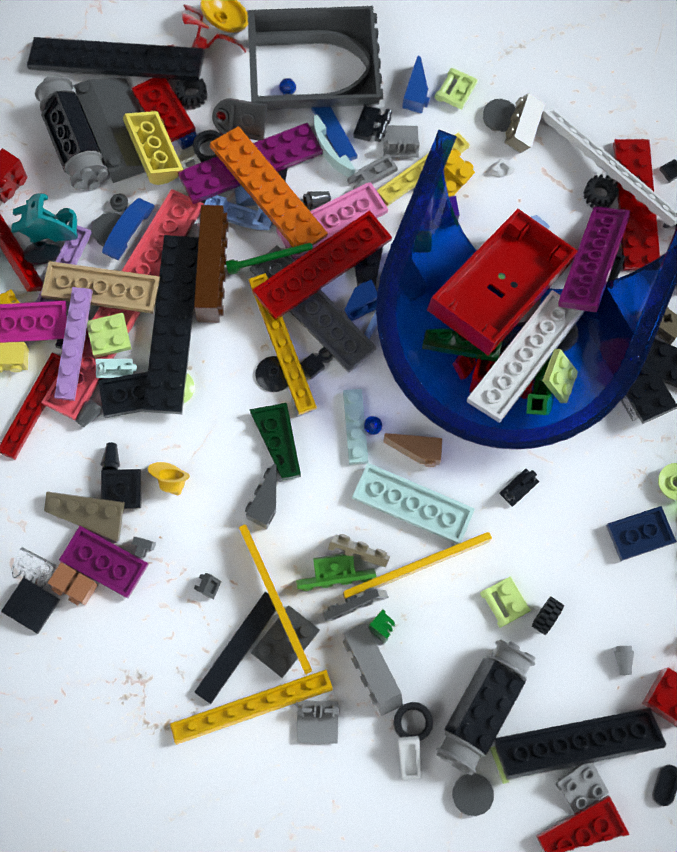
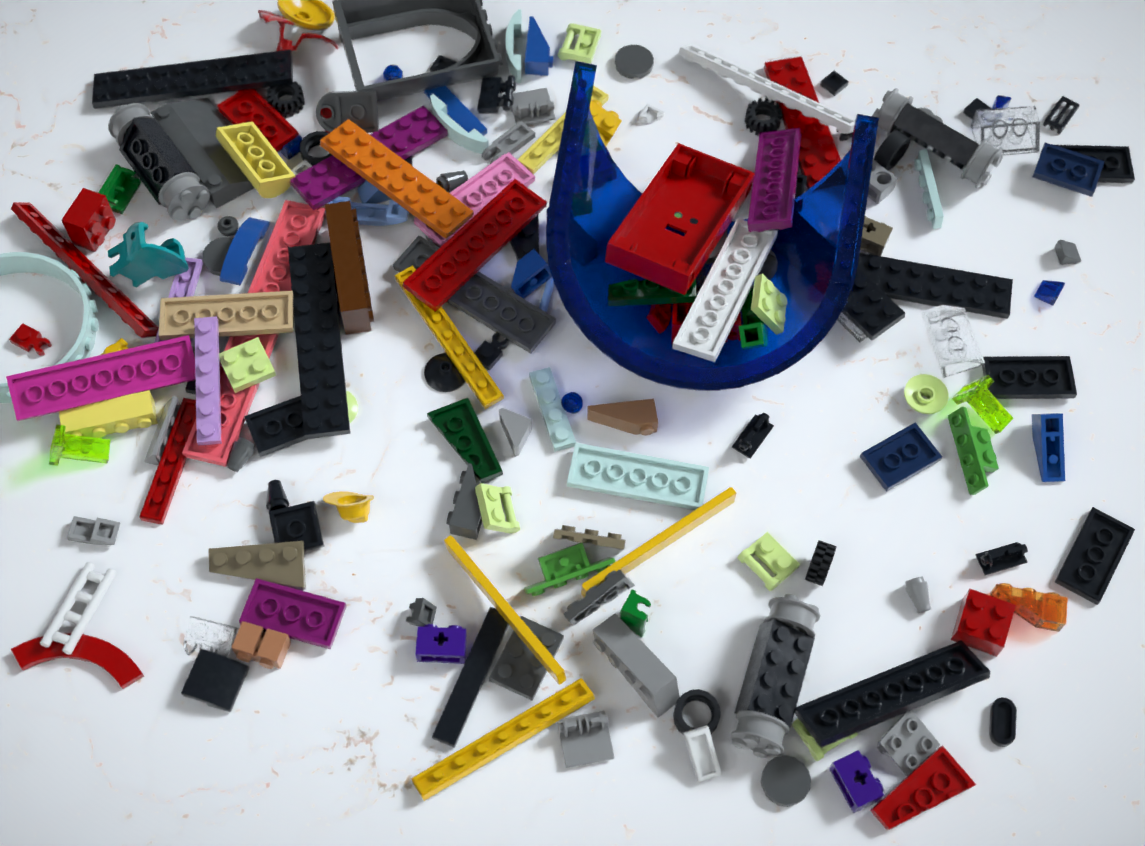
camera: 10 degrees left, 10 degrees down
(29, 379) = (162, 431): none -> light grey slope
(34, 150) = (120, 188): none -> green hinge
(41, 252) = (149, 293): black dish -> none
(114, 367) = (260, 398): light aqua hinge -> none
(142, 546) = (335, 585): dark grey tile -> none
(226, 623) = (453, 648): none -> dark purple brick
(234, 266) = (375, 266): green piece -> none
(284, 507) = (492, 511): none -> yellowish green plate
(321, 439) = (516, 428): none -> light grey slope
(332, 85) = (441, 63): none -> black tile
(401, 64) = (514, 30): none -> light aqua slope
(523, 800) = (857, 794): none -> dark purple brick
(524, 122) = (662, 62): brick -> none

